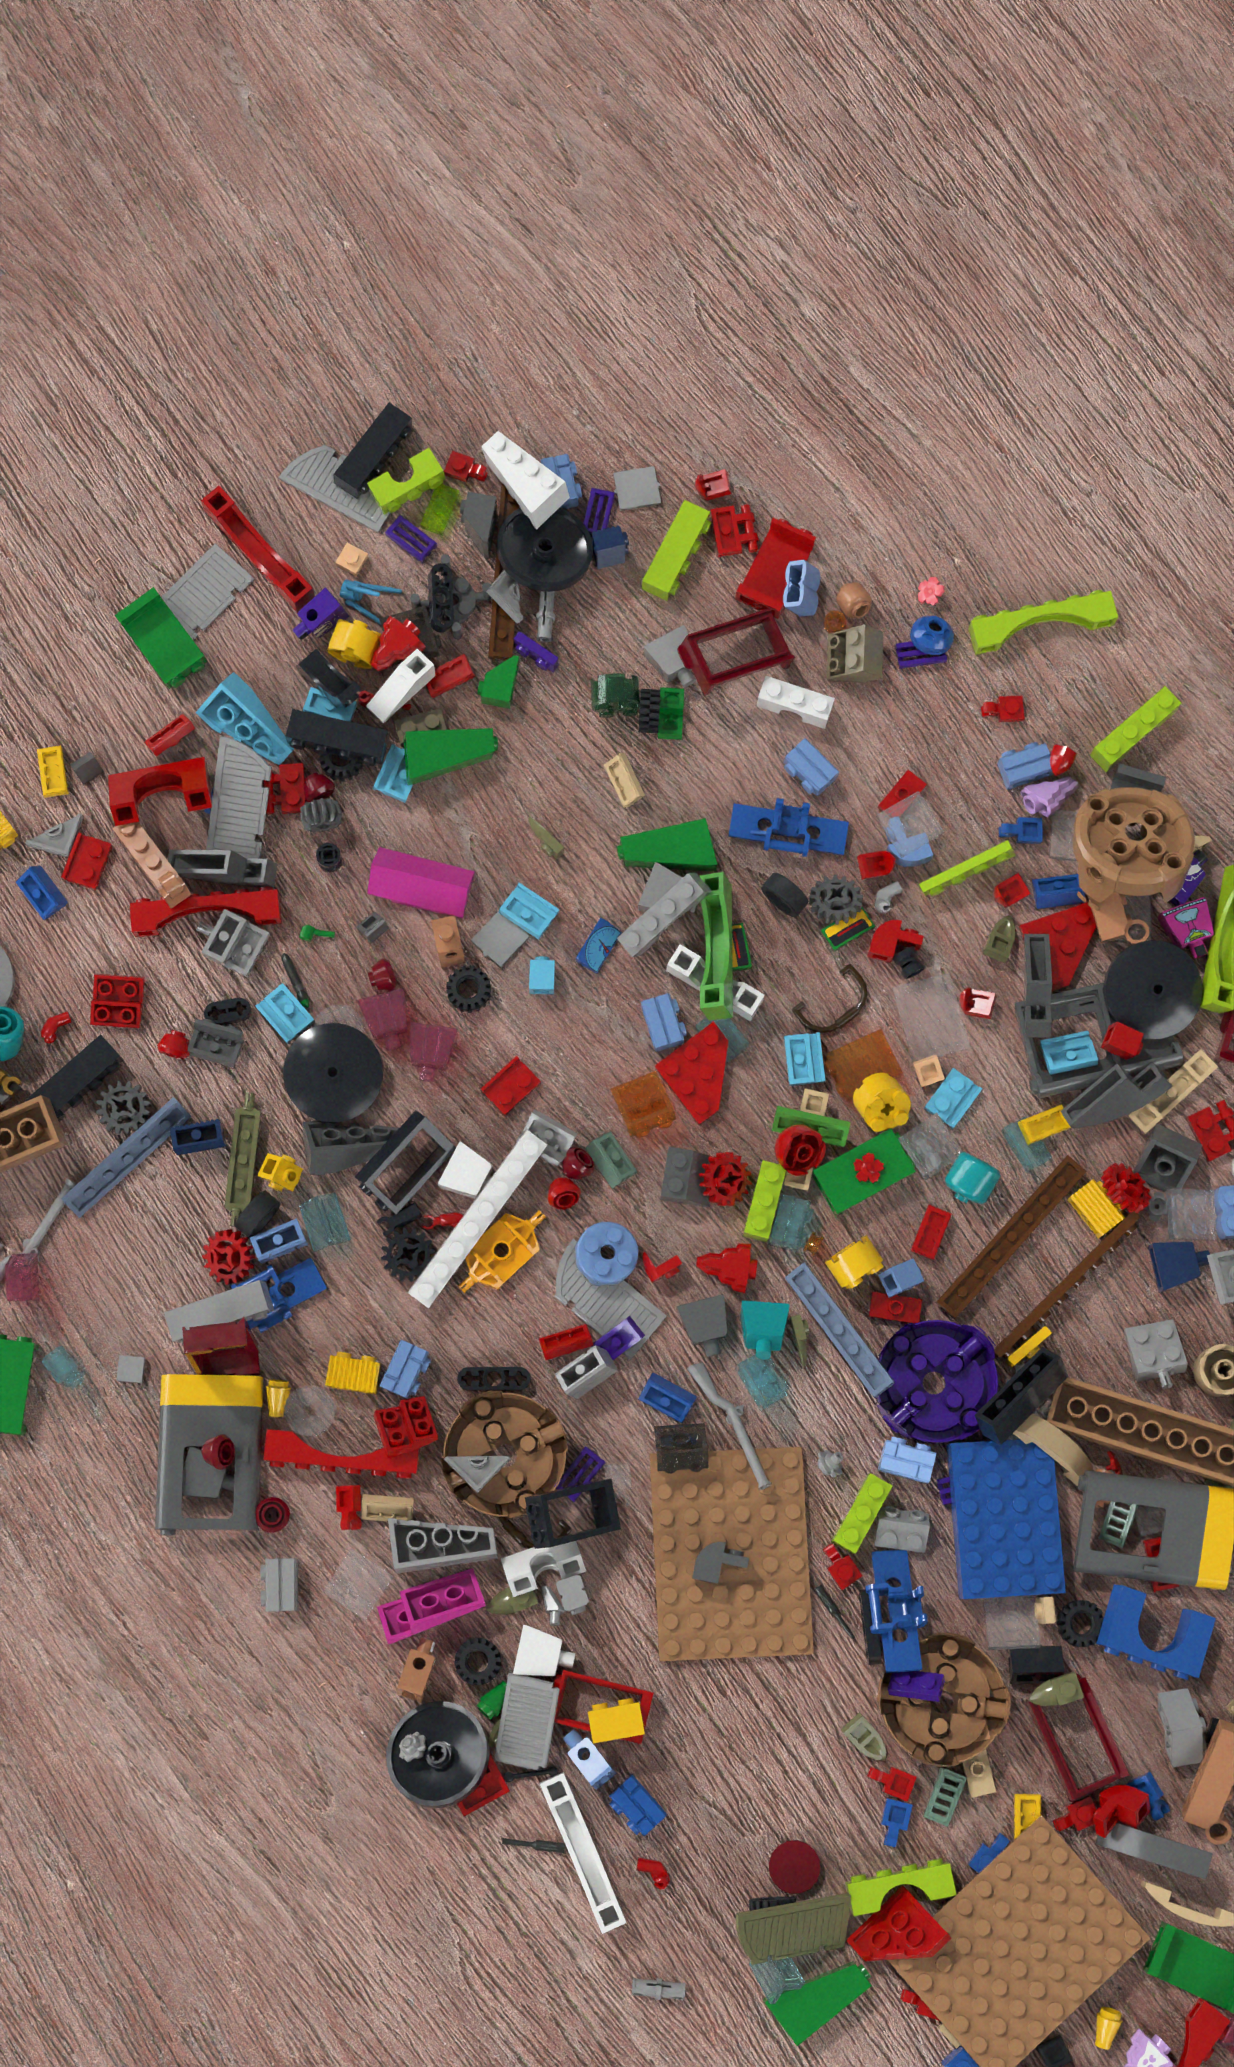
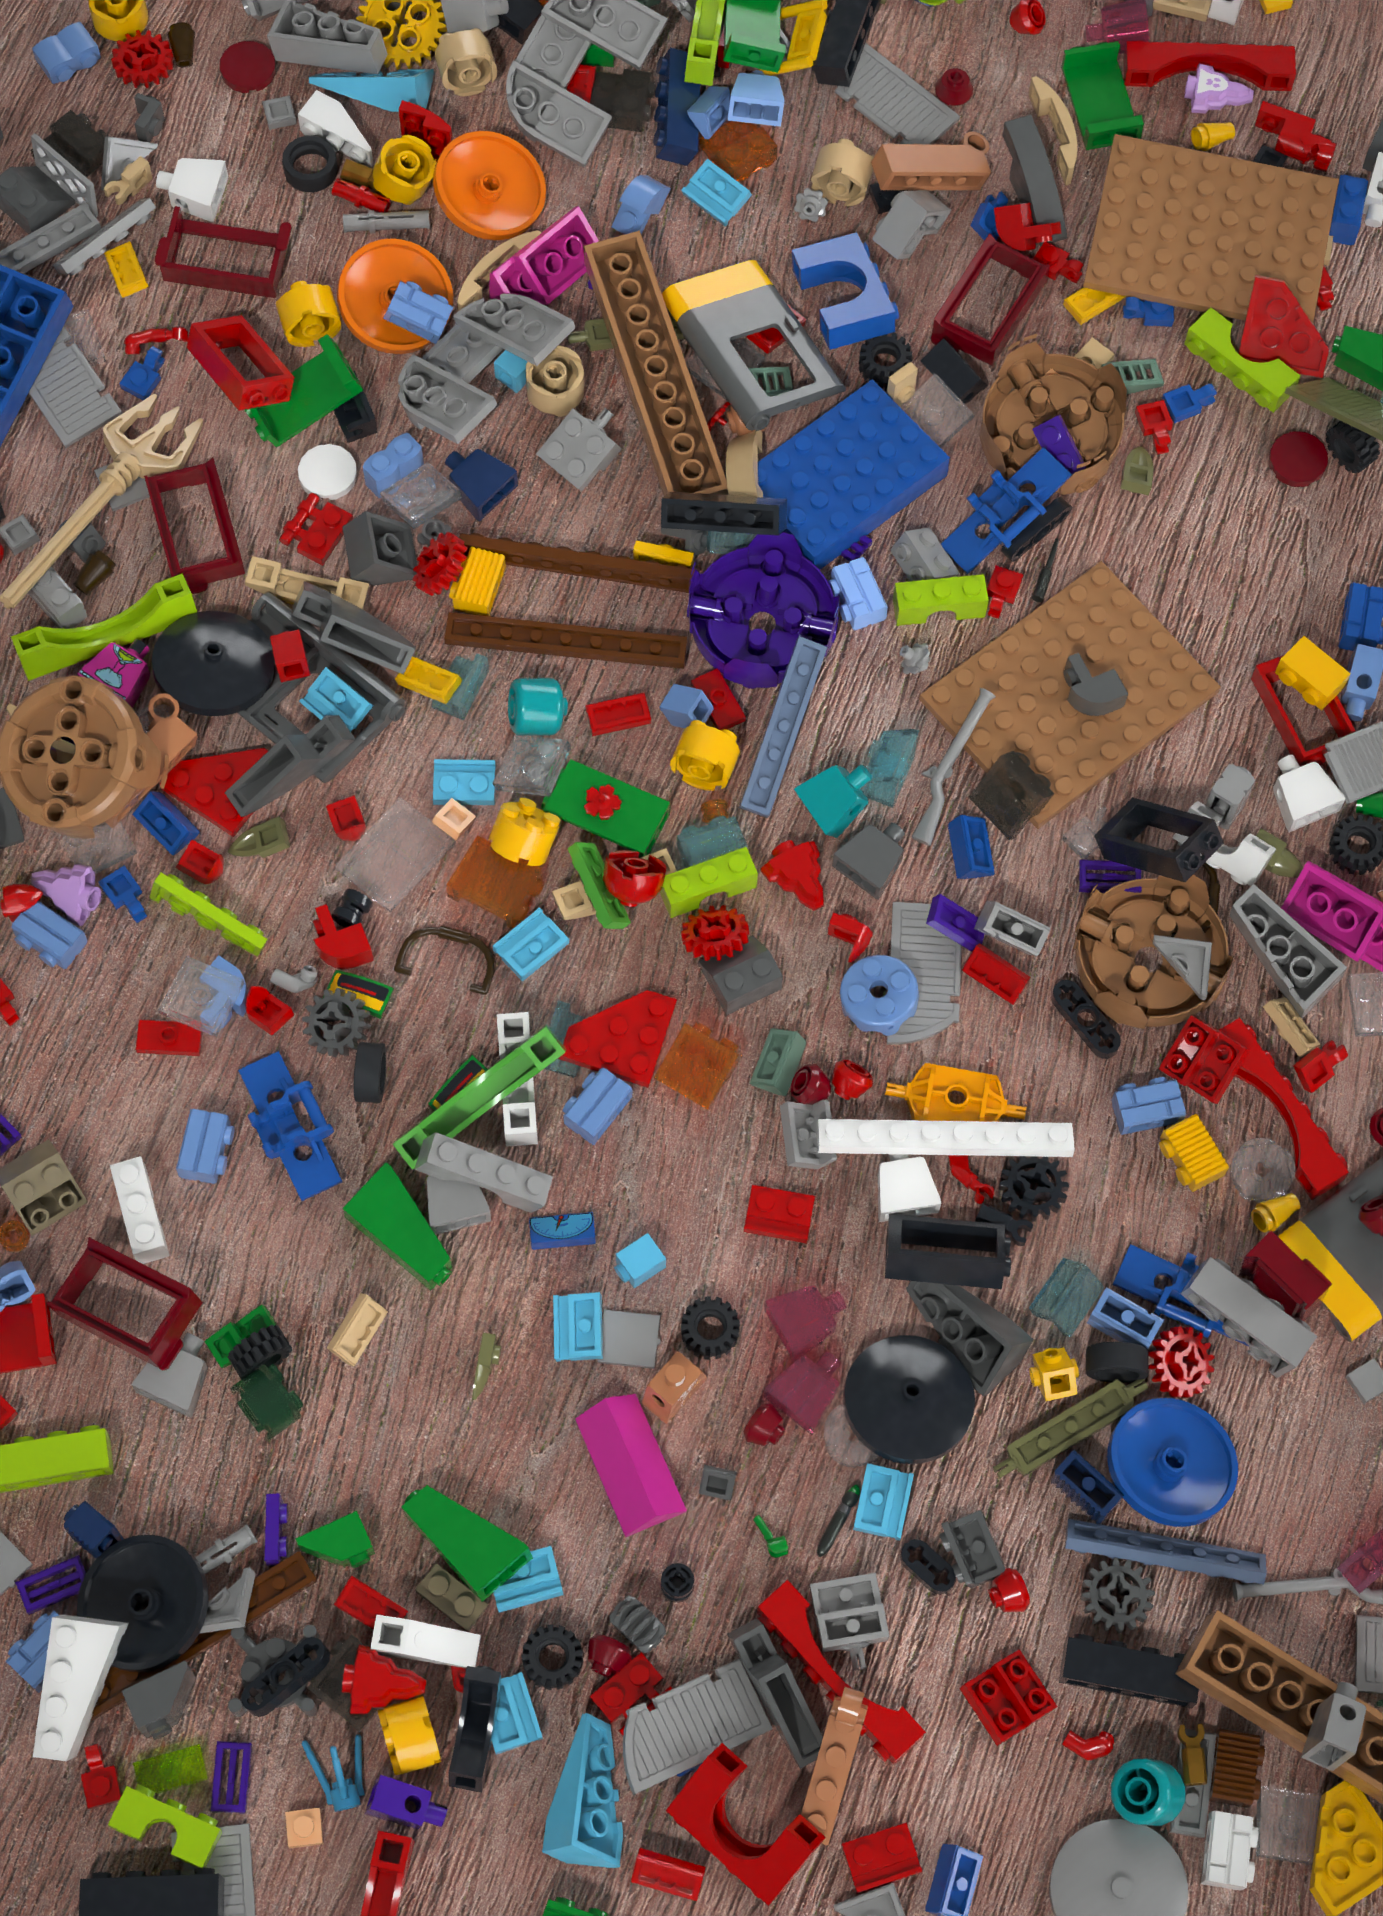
camera: 125 degrees left, 10 degrees down
(172, 1201) = (1172, 1462): none -> blue dish
(337, 737) = (537, 1667): black brick -> none
(552, 1605) = (1252, 815): light grey bar -> none
(800, 1330) = (816, 762): olive plate -> none
(1058, 1691) = (963, 329): olive plate -> none

